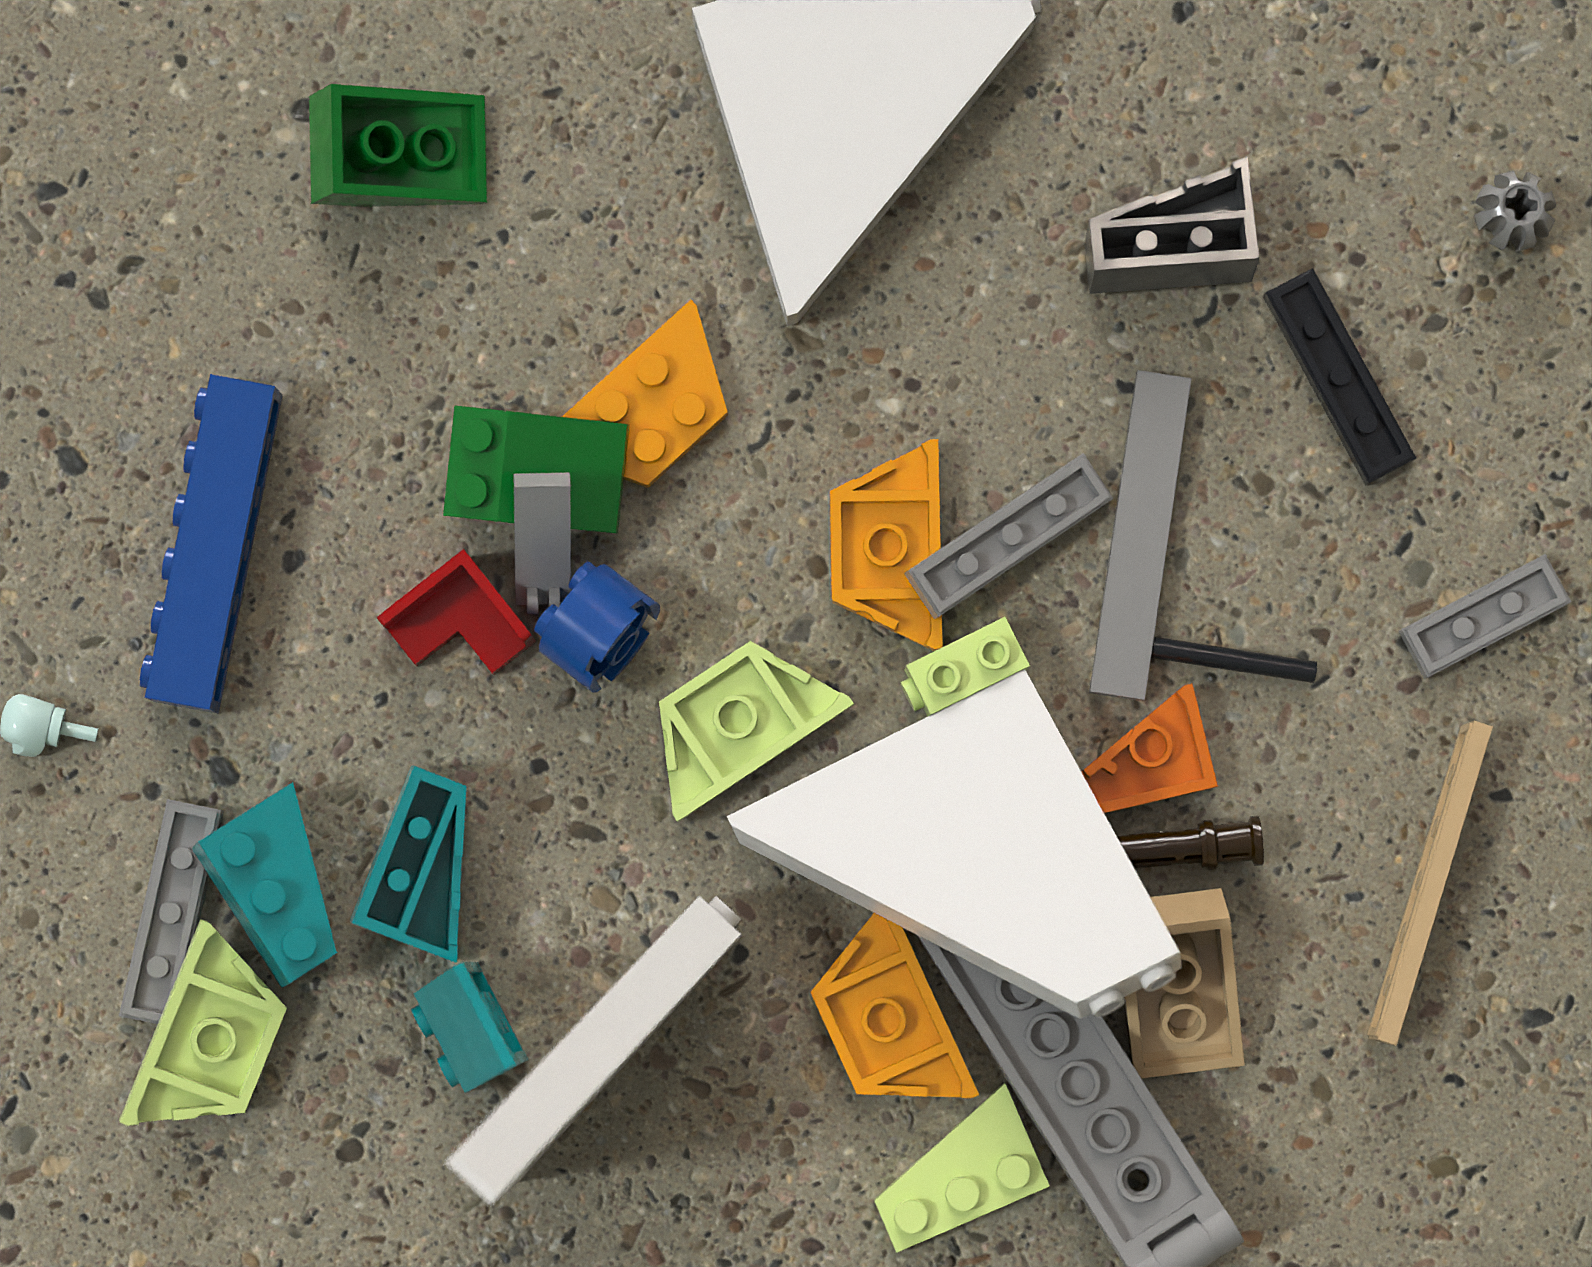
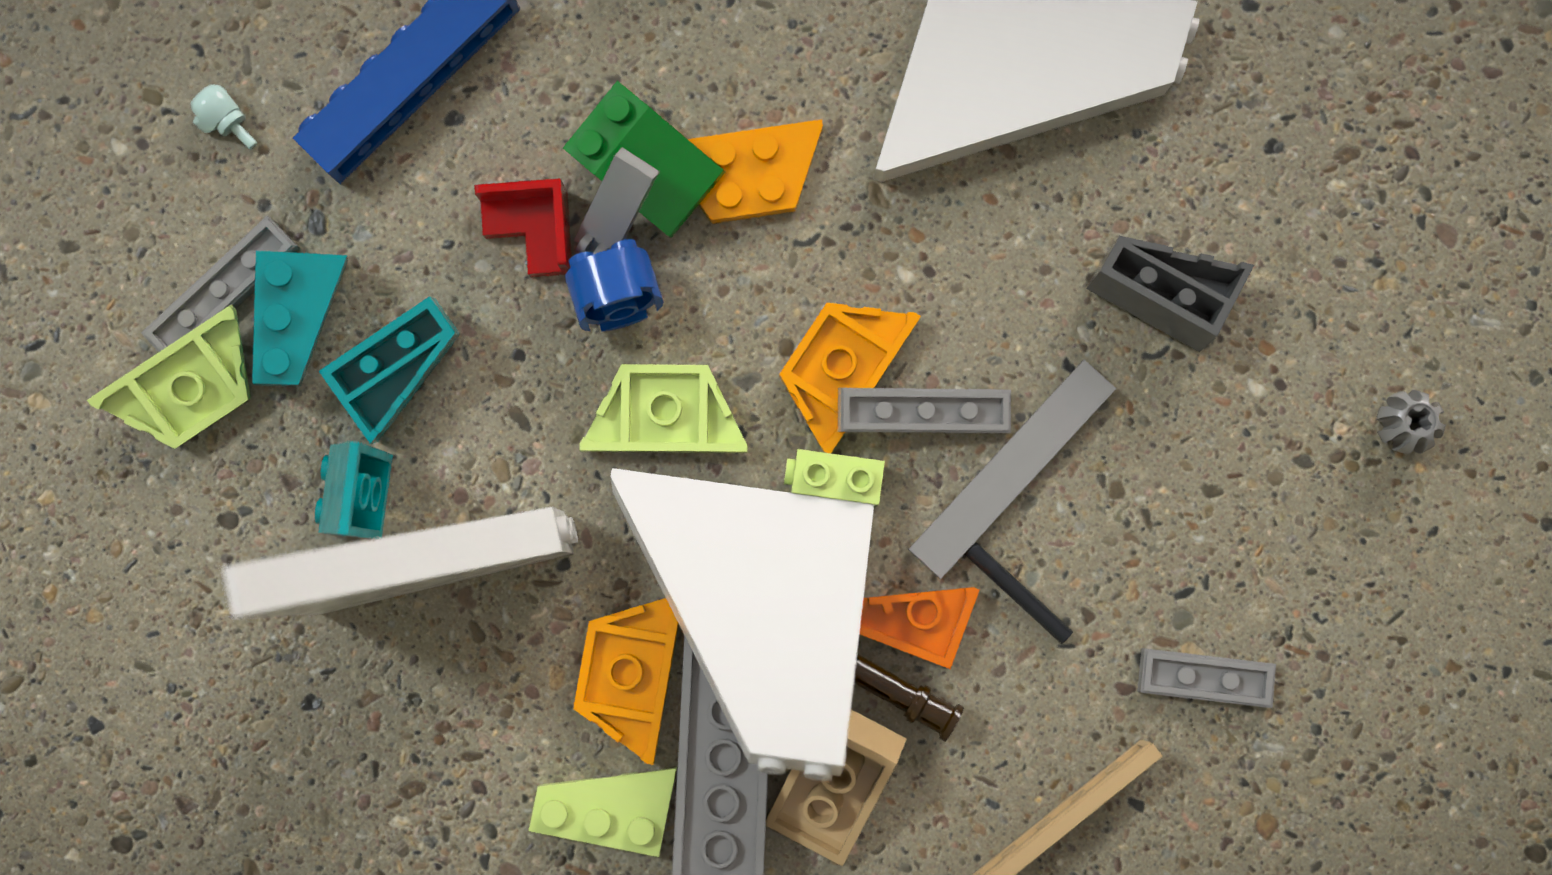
camera: 40 degrees right, 0 degrees up
(1339, 376) = (1215, 453): black tile -> none

